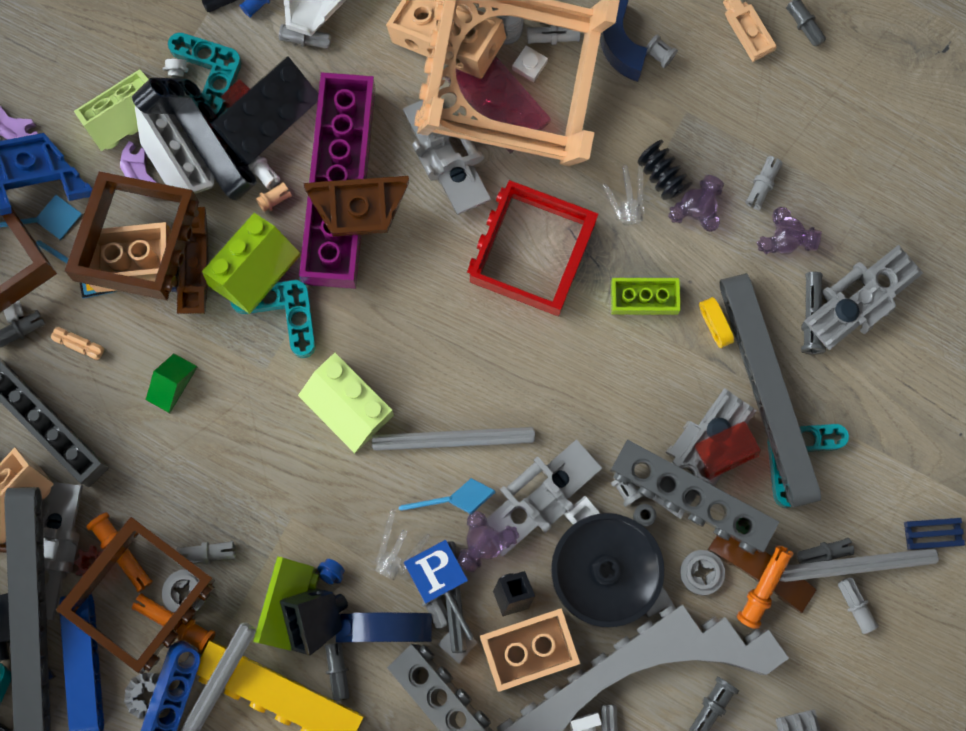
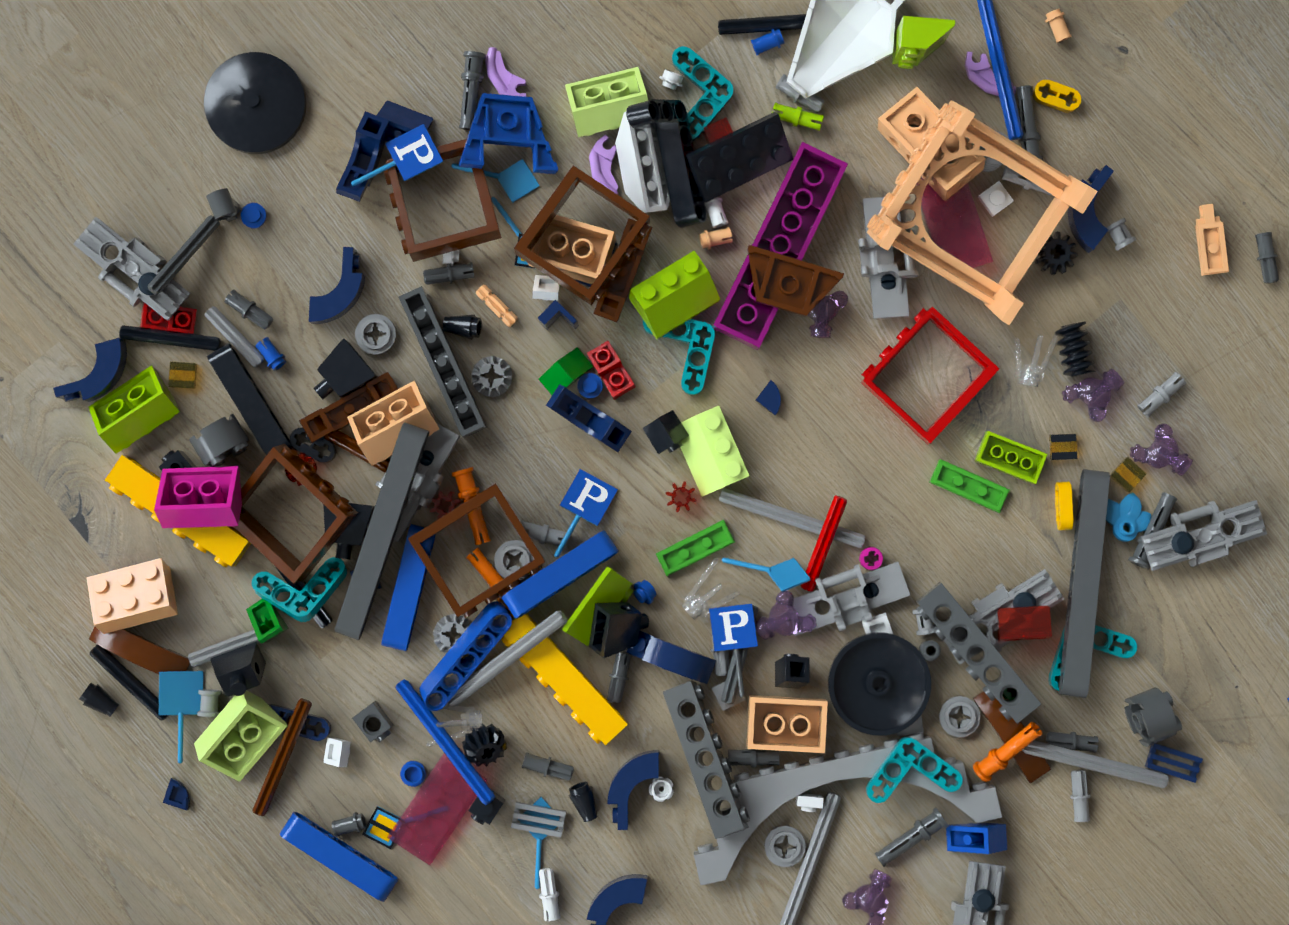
camera: 25 degrees right, 10 degrees up
(49, 375) = (464, 326): none -> black cone
(107, 420) = (499, 385): none -> light grey gear
(121, 306) = (545, 288): none -> white plate
(135, 325) = (553, 312): none -> dark blue panel
(200, 386) = (589, 385): none -> blue plate
(207, 417) = (588, 418): none -> dark blue arch
(216, 362) = (611, 370): none -> red slope
(233, 587) = (560, 574): none -> blue beam
(237, 500) = (587, 499): none -> blue piece
(292, 401) = (666, 432): none -> black brick
(312, 57) = (798, 116): none -> lime pin
(332, 467) = (682, 489): none -> clear red gear
(367, 507) = (695, 548): none -> bright green tile
(385, 330) = (770, 398): none -> dark blue tile
(406, 226) = (825, 312): none -> clear purple animal
(494, 448) = (824, 541): none -> red axle
(509, 699) = (753, 757): none -> dark grey pin
(540, 445) = (876, 564): none -> dark pink bush
(611, 82) = (1065, 254): none -> black gear
(616, 339) = (969, 486): none -> bright green tile
(667, 641) = (905, 764): none -> teal beam
(691, 267) = (1063, 447): none -> tile
(765, 270) = (1127, 474): none -> clear yellow tile
(772, 691) = (977, 838): none -> blue slope
(780, 308) = (1127, 514): none -> dark azure plate
(893, 493) = (1152, 716): none -> dark grey brick

